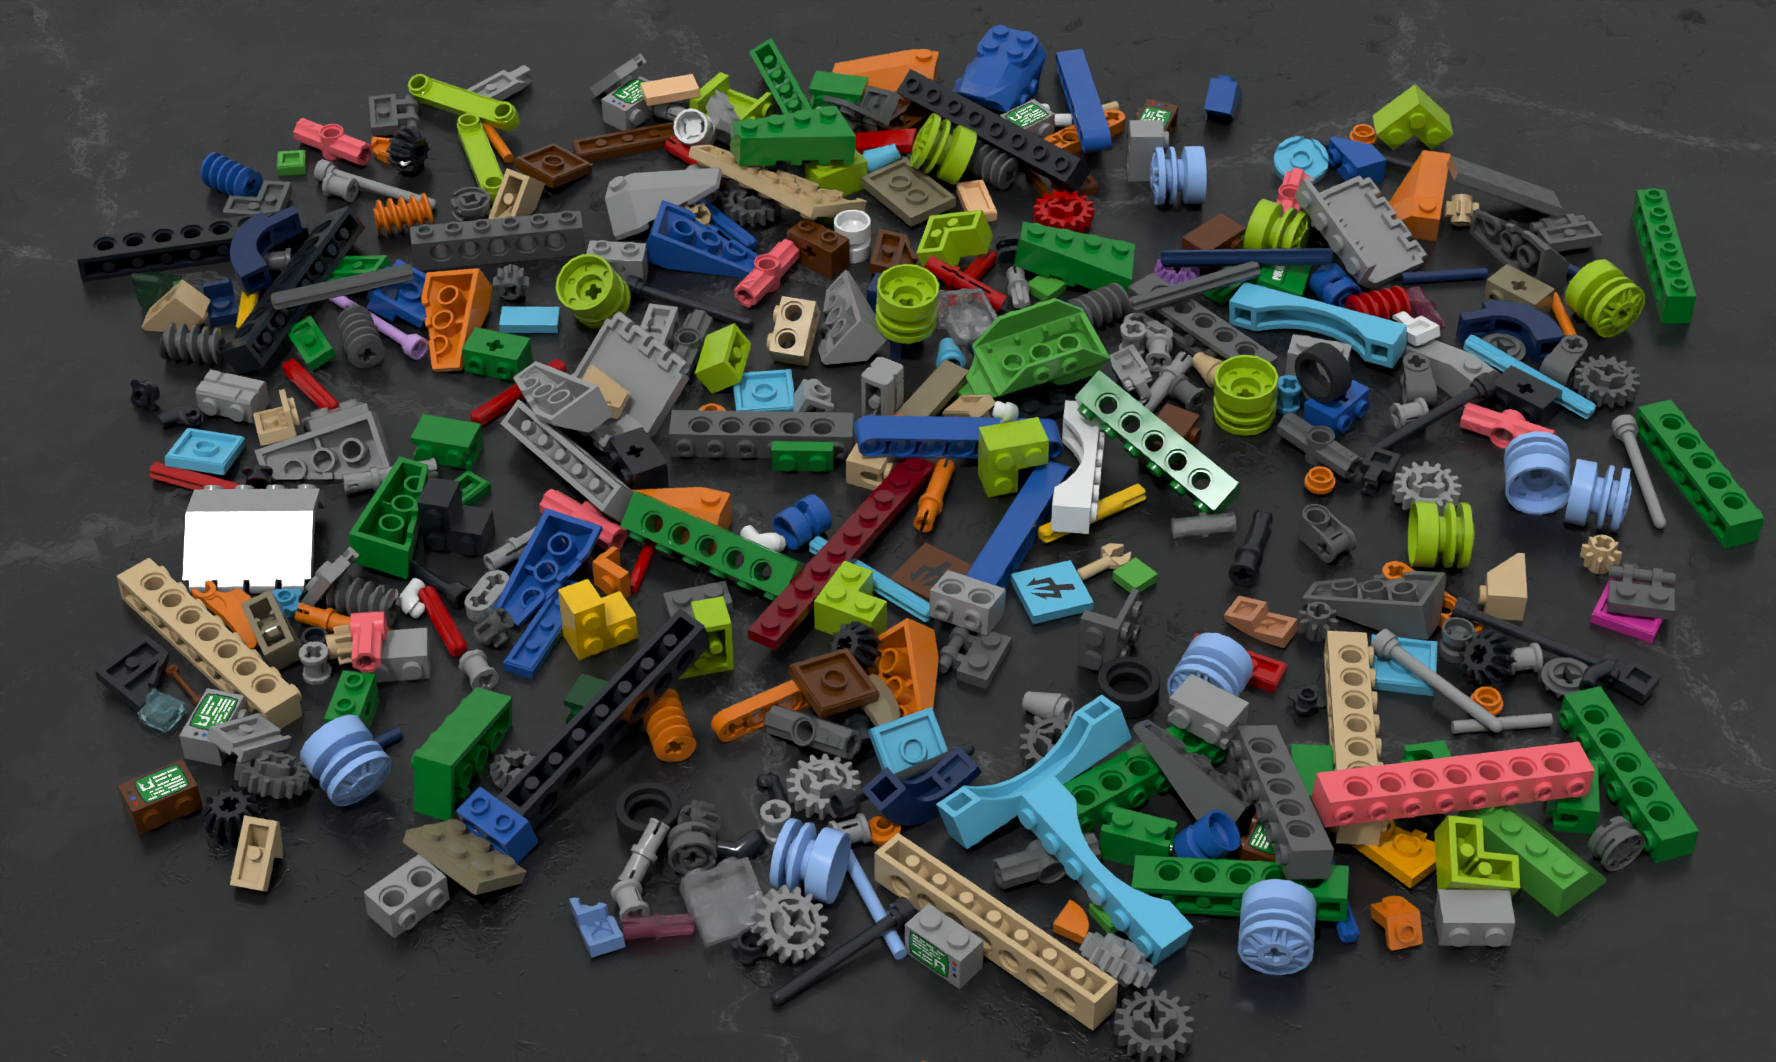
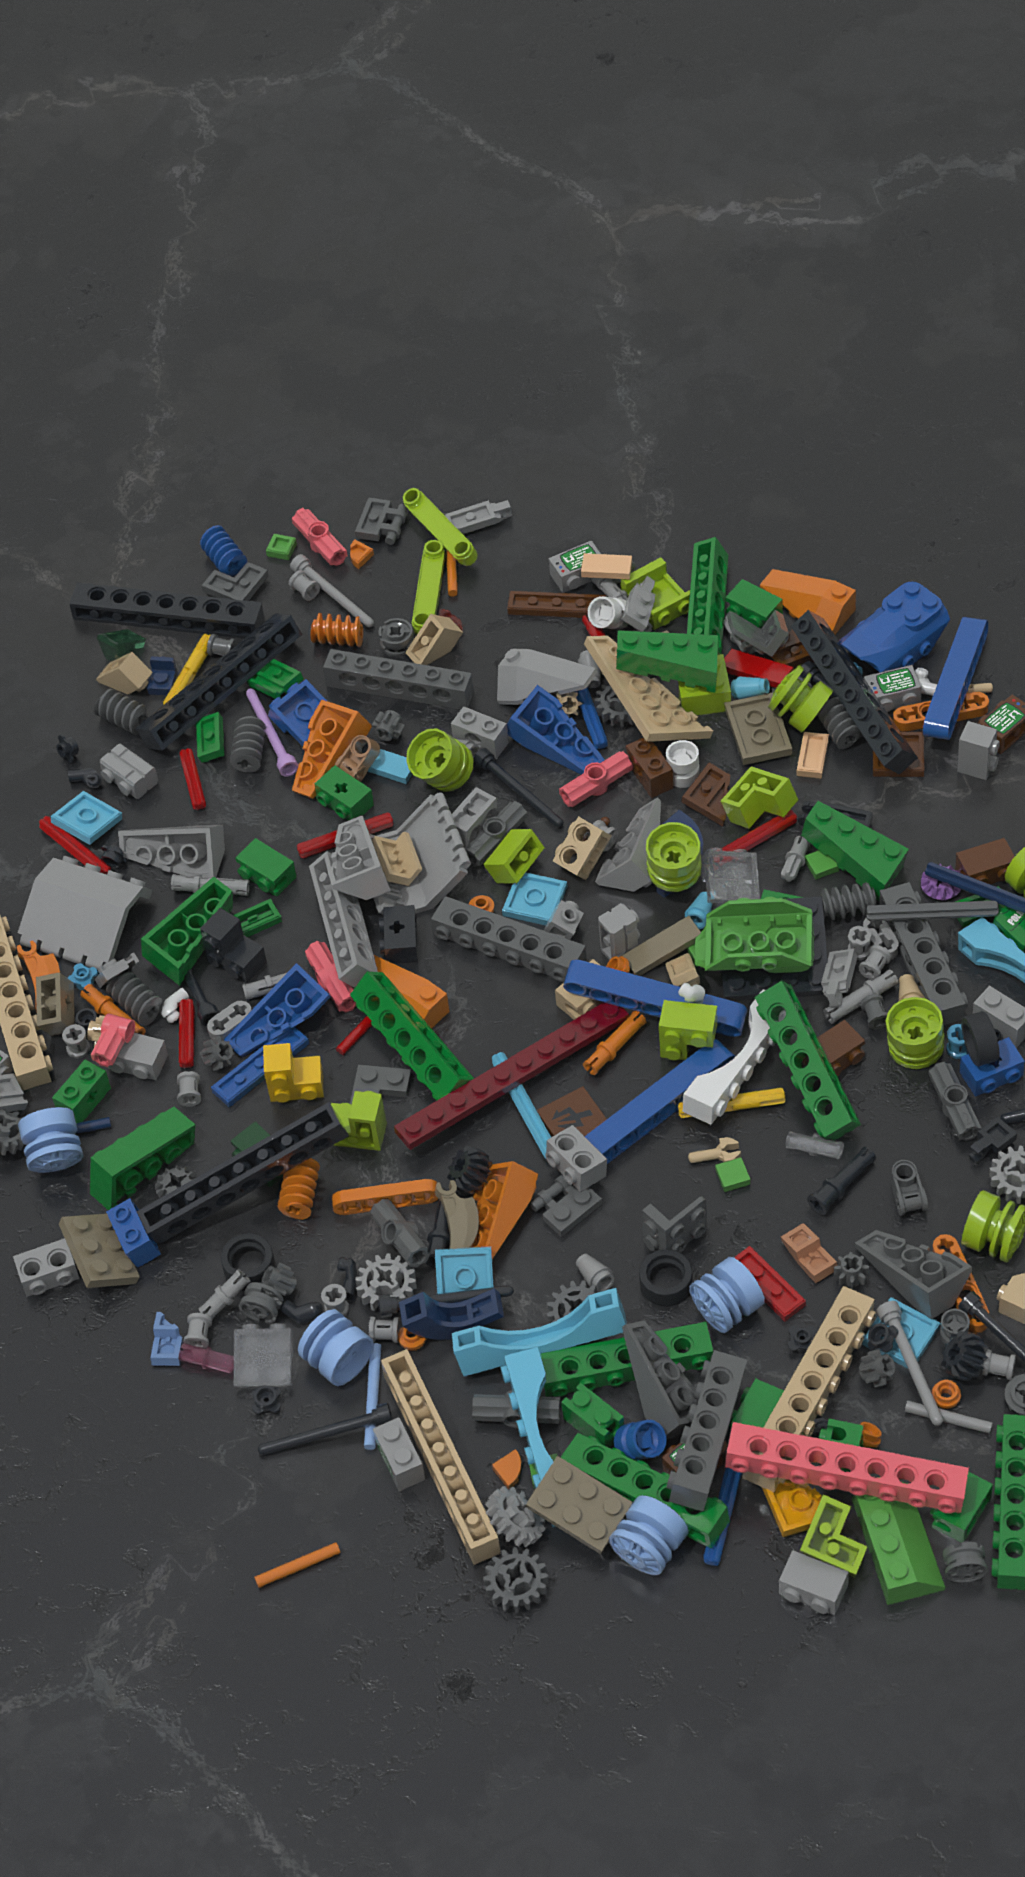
camera: 30 degrees right, 10 degrees up
(255, 240) = (200, 631): dark blue arch -> none
(277, 423) = (147, 808): tan bracket -> none
(323, 417) = (193, 816): light grey plate -> none
(342, 286) = (232, 697): dark grey axle -> none
(408, 149) = (371, 564): black gear -> none
(494, 317) = (356, 760): none -> medium nougat piece
(553, 165) = (482, 613): reddish brown tile -> none
(610, 574) = (324, 1028): orange bracket -> none
(618, 76) = (576, 536): light grey plate -> none
(771, 540) = (459, 1043): white arm -> none
(789, 924) = (289, 1382): light grey gear -> none
(802, 456) = (529, 971): green plate -> none
(803, 521) = (494, 1035): blue wheel -> none
(833, 683) = (431, 1198): reddish brown tile -> none
(849, 599) = (488, 1124): lime brick -> none
(954, 277) = (728, 819): red pin -> none
(1051, 592) = (658, 1166): medium azure tile -> none
(1064, 211) = (876, 791): red gear -> none
(1179, 175) = (996, 787): light blue wheel -> none
(1185, 921) = (578, 1504): none -> dark tan plate
(1207, 711) = (698, 1328): light grey brick -> none
(1319, 480) = (940, 1129): orange plate -> none
(1390, 660) = (876, 1334): none -> black plate
(1399, 920) = (753, 1563): orange bracket -> none
(1404, 699) = (877, 1368): none -> dark grey gear

